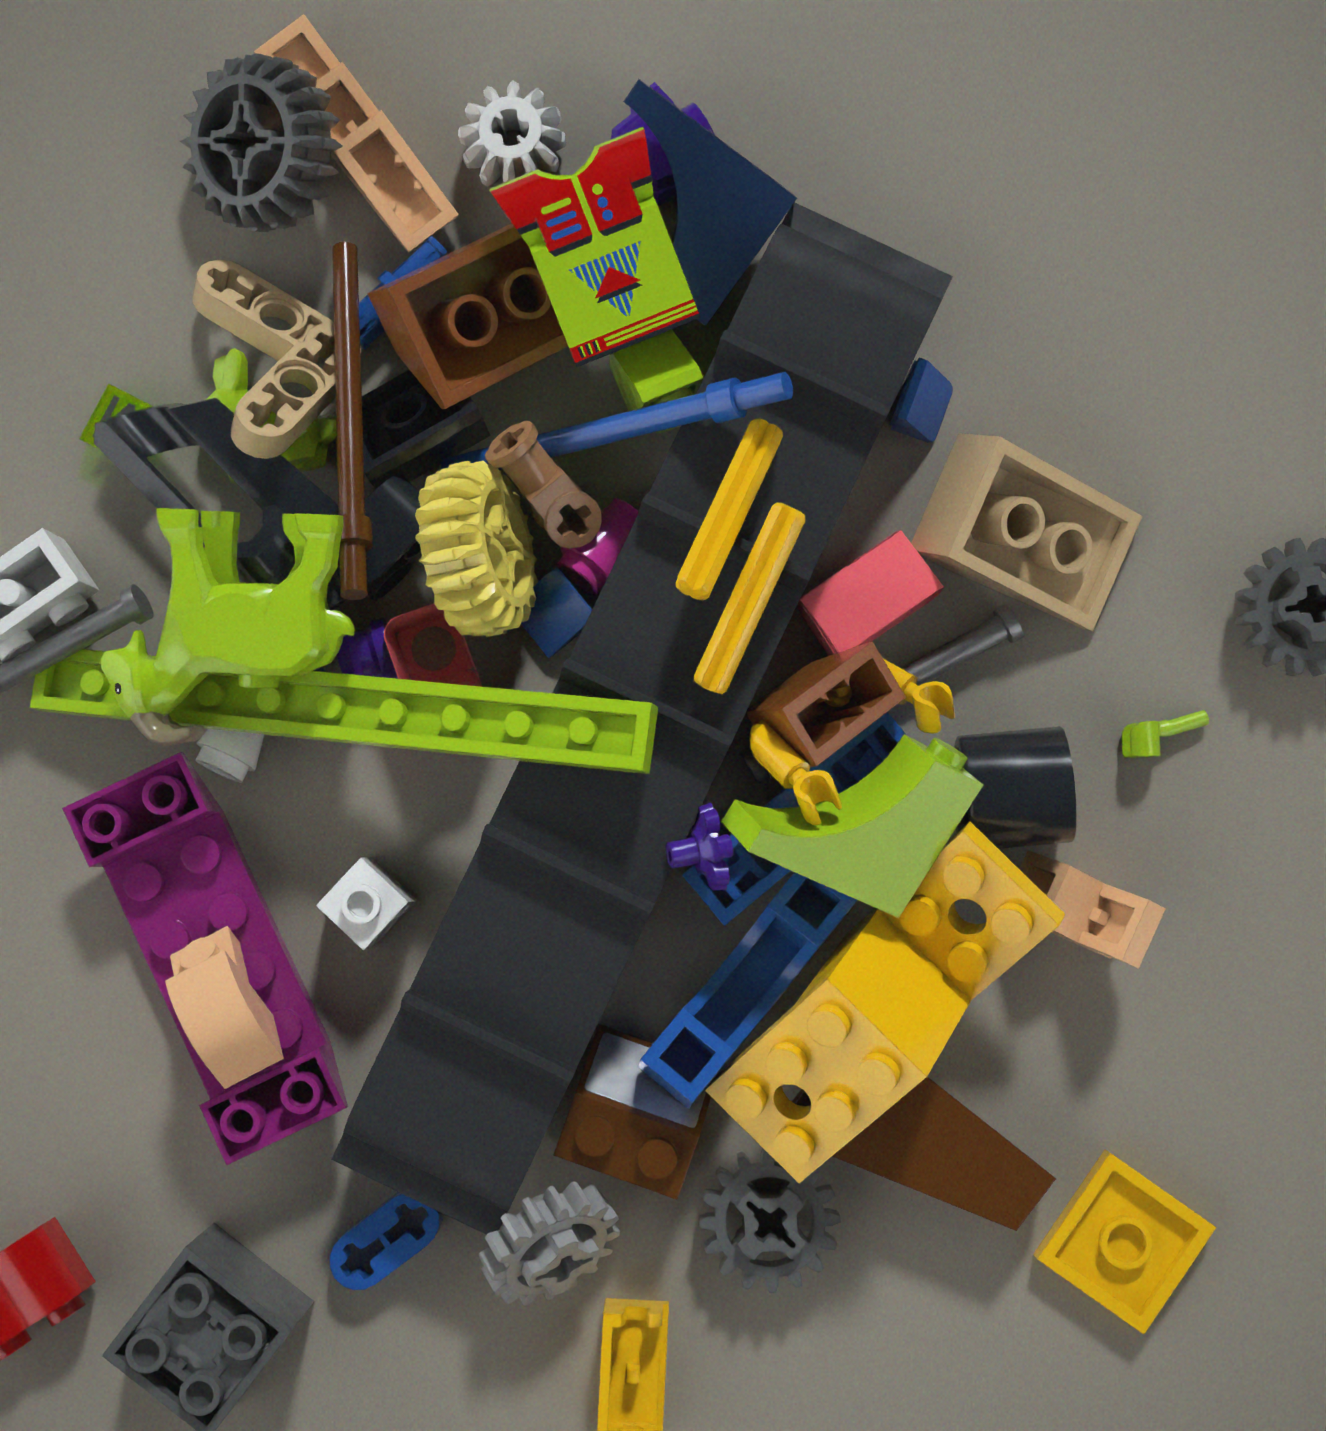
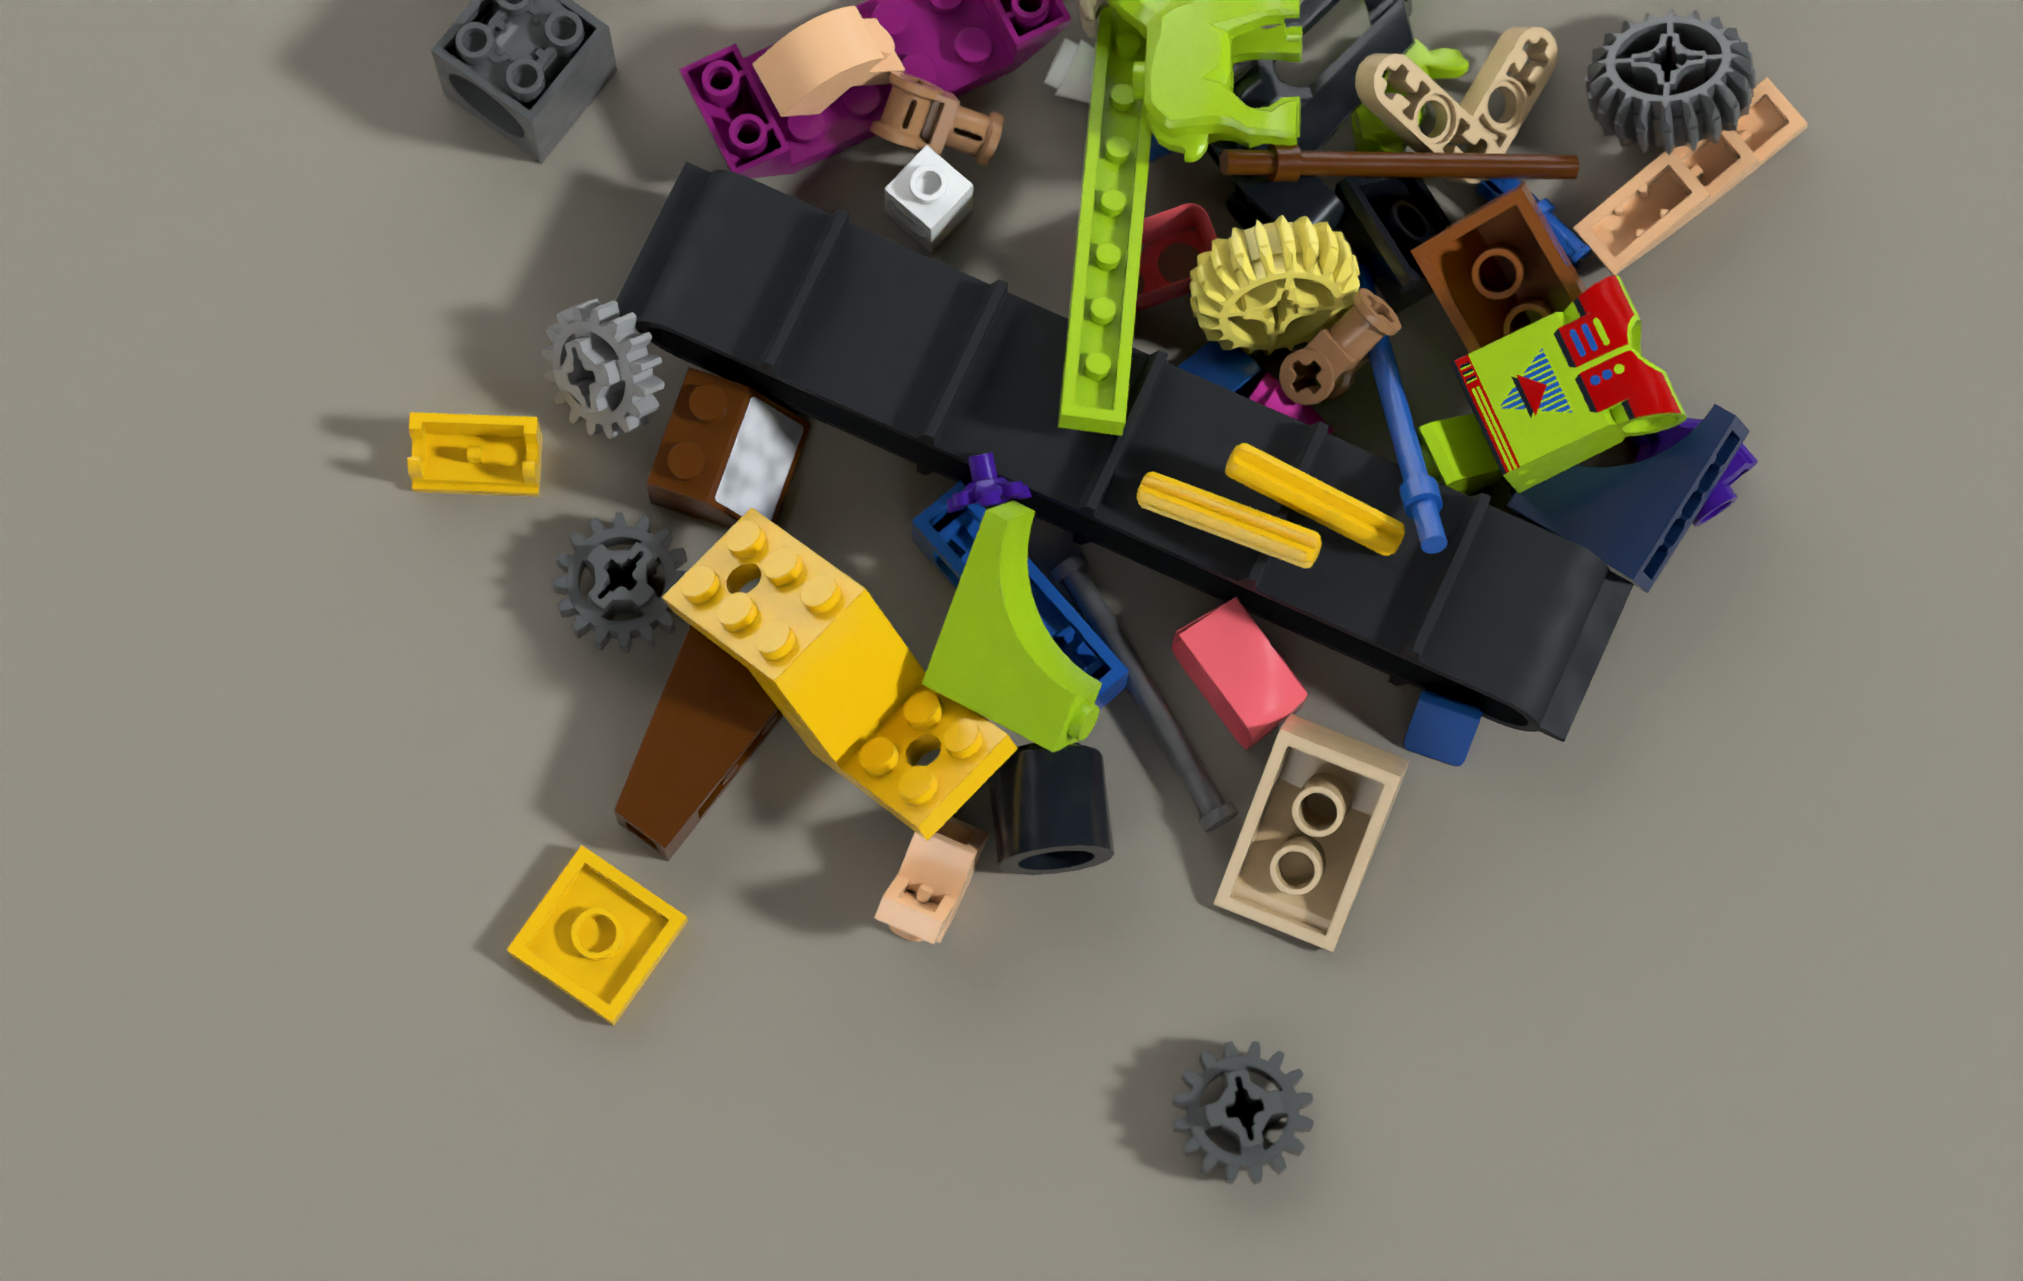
camera: 85 degrees right, 10 degrees down
(281, 900) = (928, 115): none -> medium nougat connector
(367, 652) = (1172, 186): dark purple wheel -> none
(395, 1250) = (592, 235): blue beam -> none
(489, 128) = (1710, 307): white gear -> none
(744, 987) = (807, 504): blue arch -> none
(828, 707) = (1126, 613): dark orange torso -> none
(1143, 738) = (1105, 952): lime hand -> none

